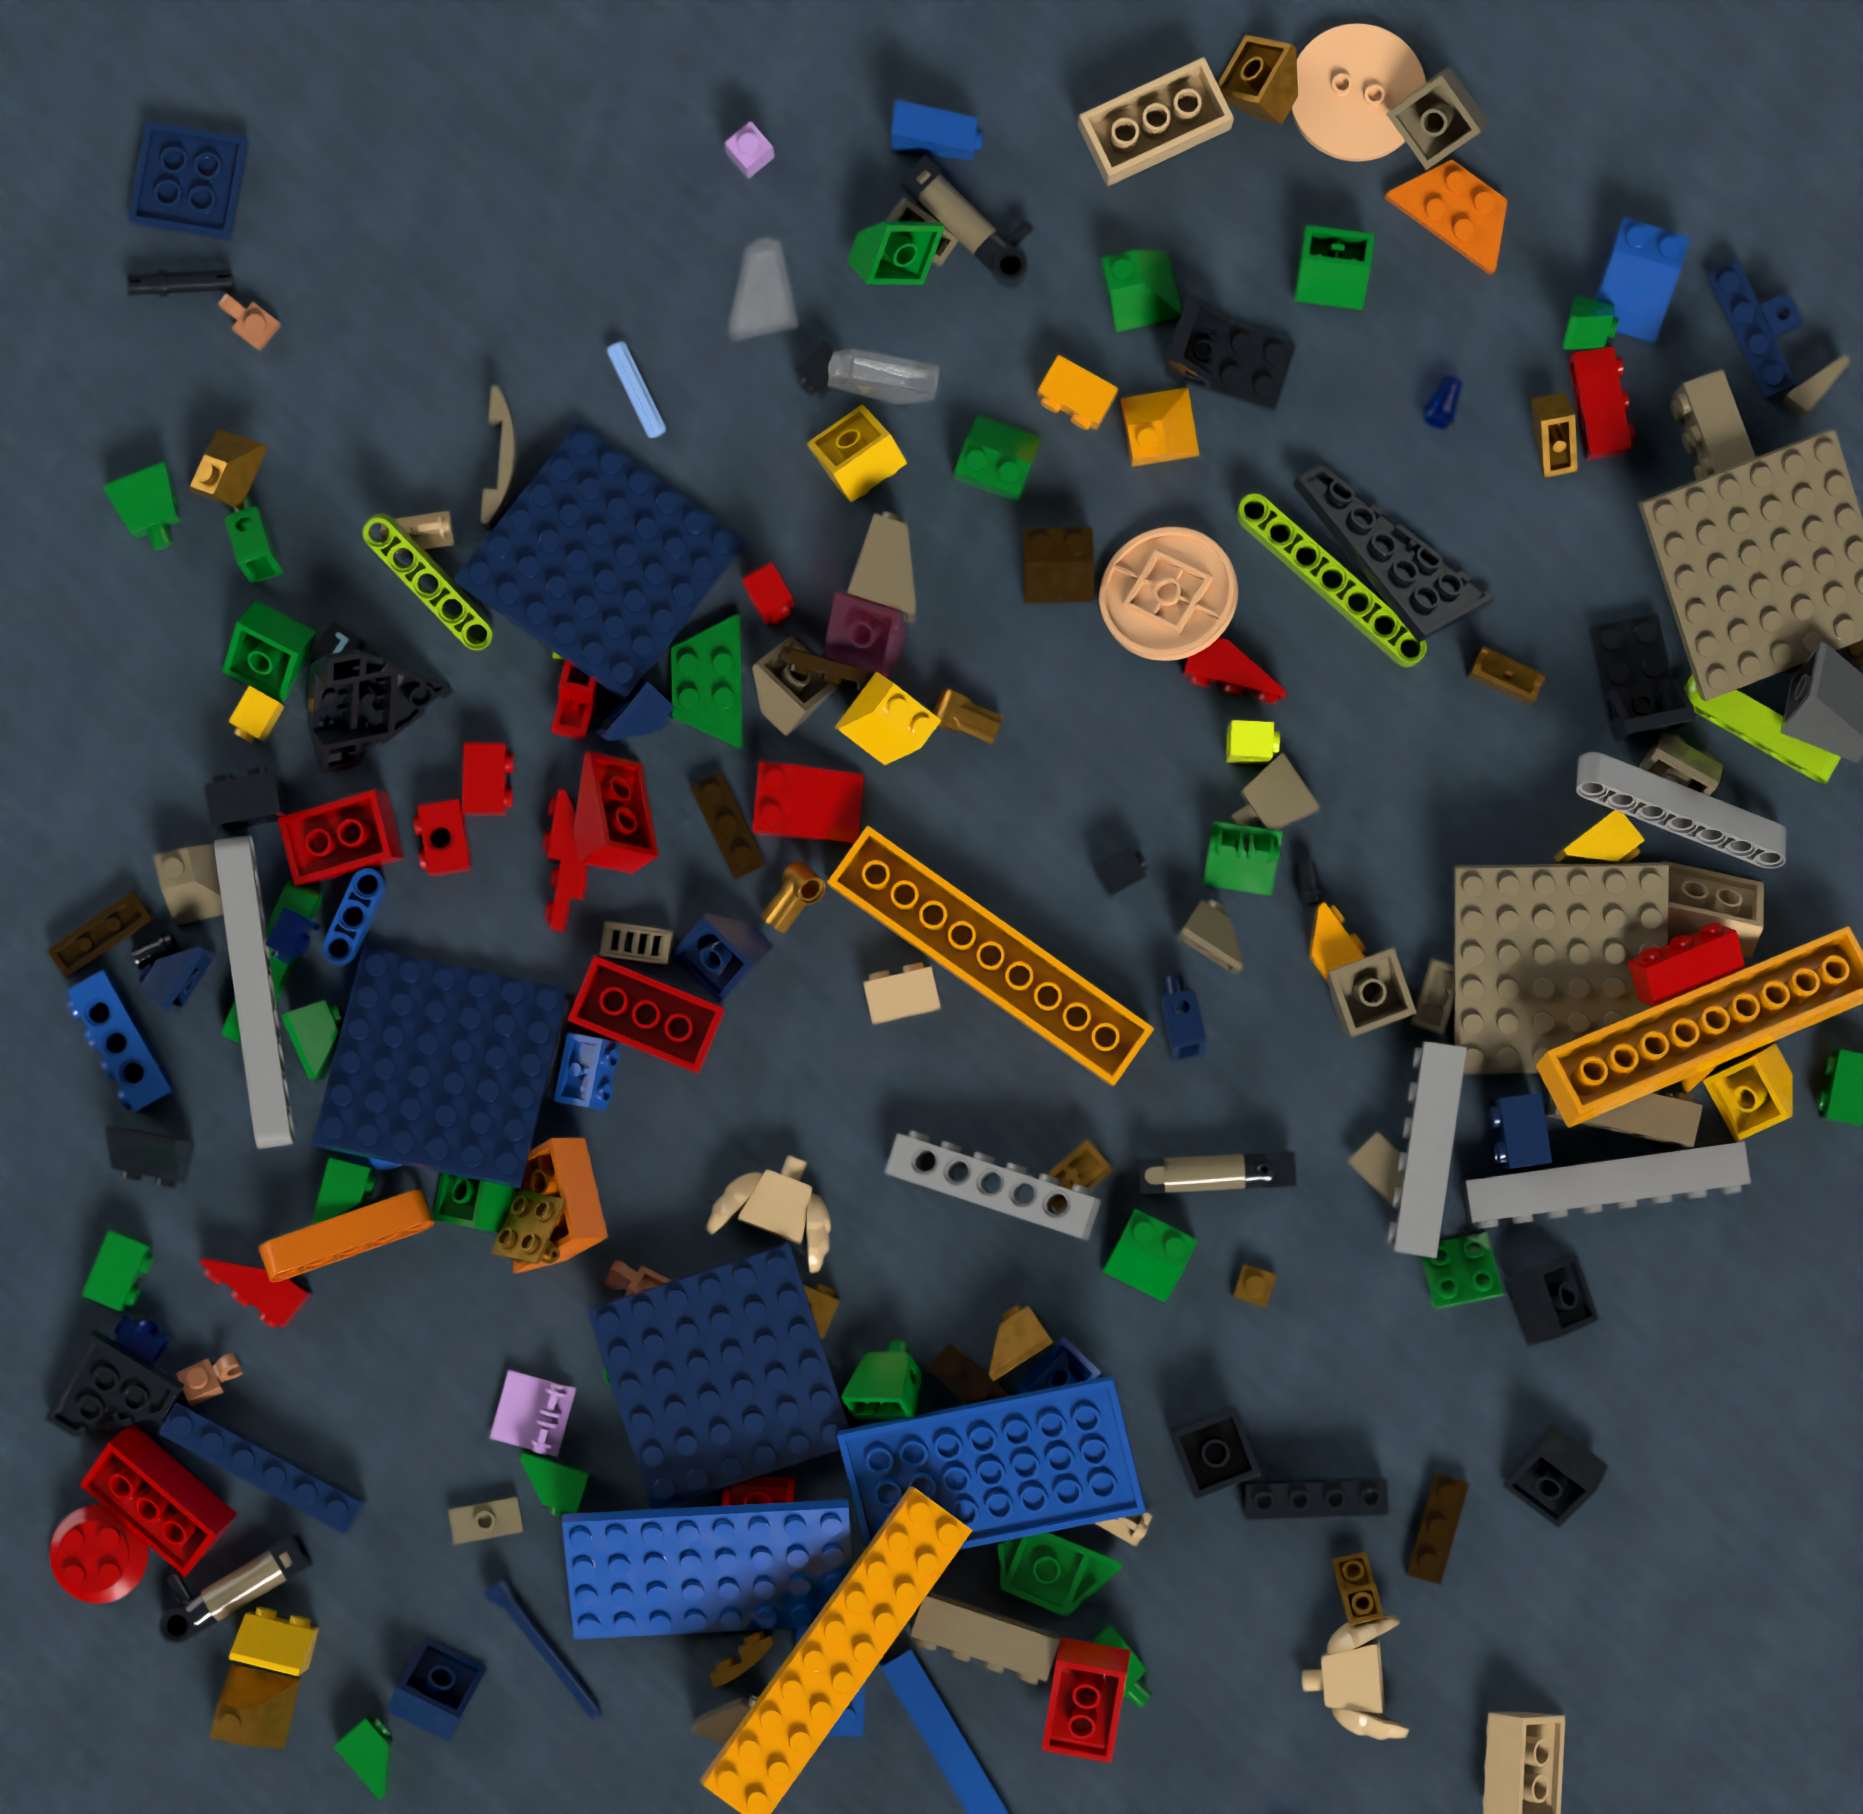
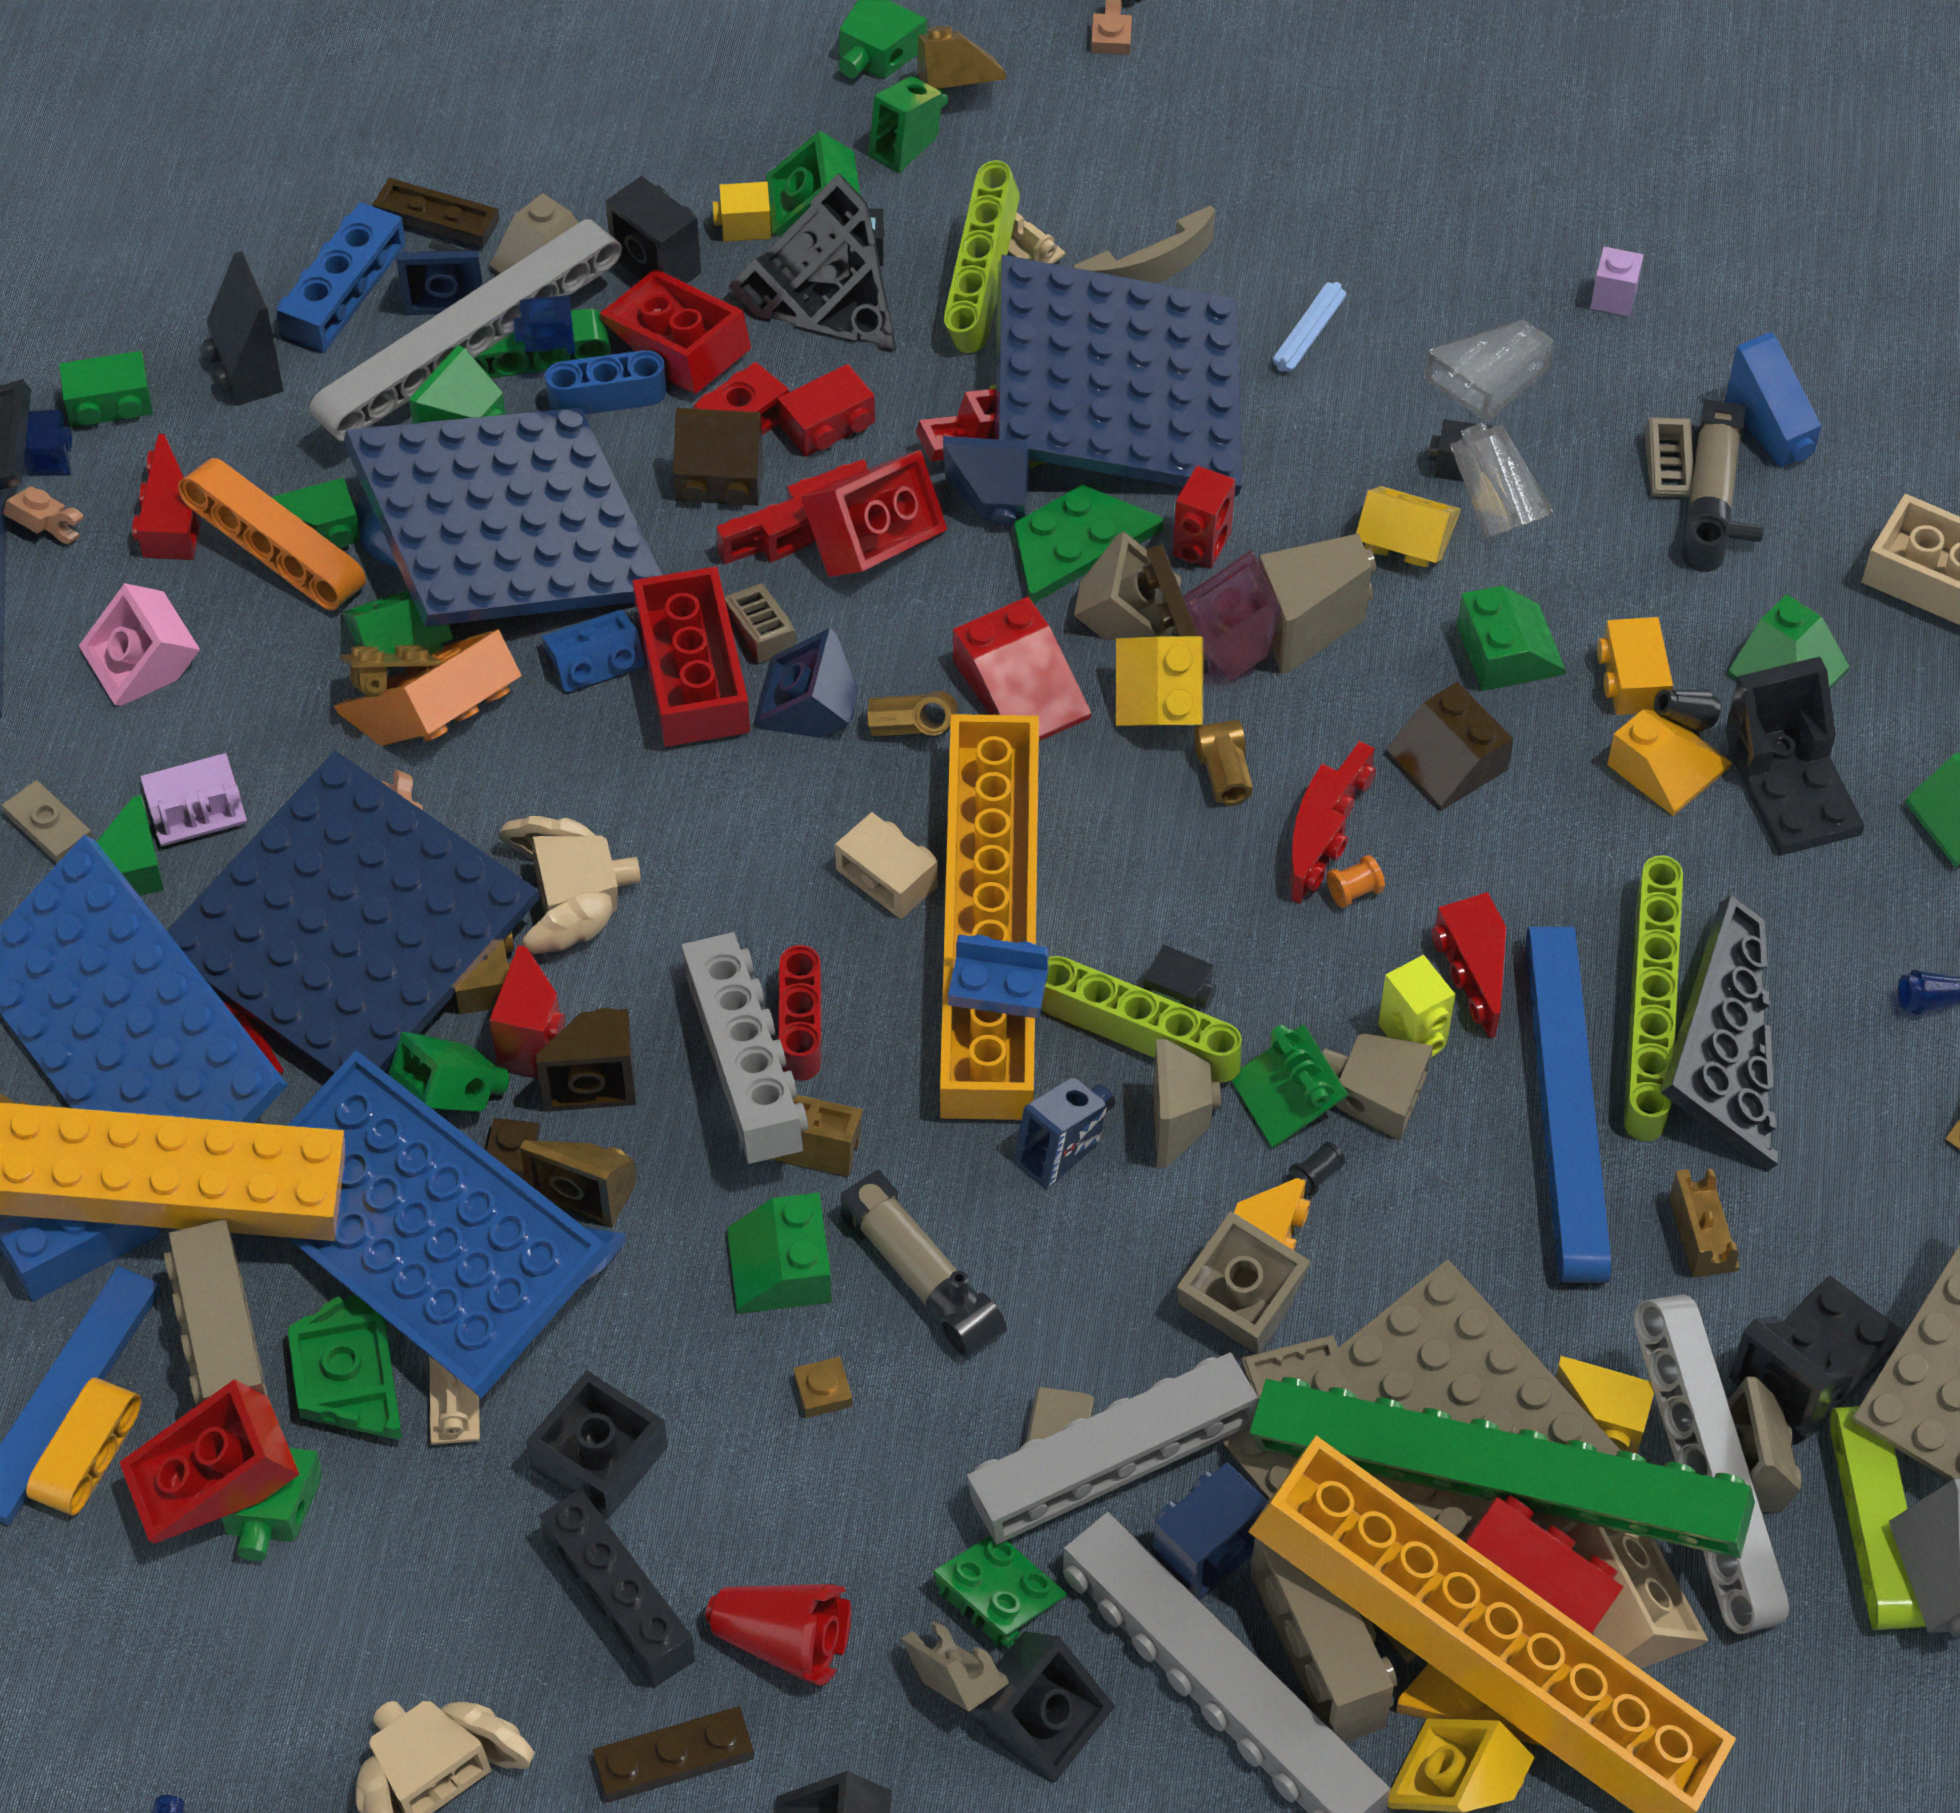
camera: 55 degrees right, 30 degrees down
(376, 1378) = (138, 644): none -> bright pink slope
(488, 889) = (718, 456): none -> dark brown slope
(727, 826) = (932, 640): dark brown plate -> none
(879, 1306) = (524, 1015): none -> red slope
(895, 252) = (1634, 434): green slope -> none
(938, 1284) = (589, 1063): none -> dark brown slope
(967, 1112) = (797, 995): none -> red beam
(1001, 1759) = (83, 1446): none -> light orange beam
(1063, 997) = (999, 976): none -> blue bracket
(1064, 700) = (1323, 818): none -> red slope
(1118, 702) = (1355, 881): none -> orange bush
(1136, 385) = (1688, 707): none -> black cone
(1142, 903) = (1138, 1016): none -> lime beam
(1168, 593) = (1507, 852): light nougat plate -> none
(1357, 1588) = (540, 1698): pearl gold slope -> none
(1367, 692) = (1567, 1106): none -> blue beam
(1407, 1418) = (785, 1625): none -> red cone
(1505, 1336) = (954, 1671): none -> dark tan hinge
(1615, 943) = (1490, 1463): none -> green brick

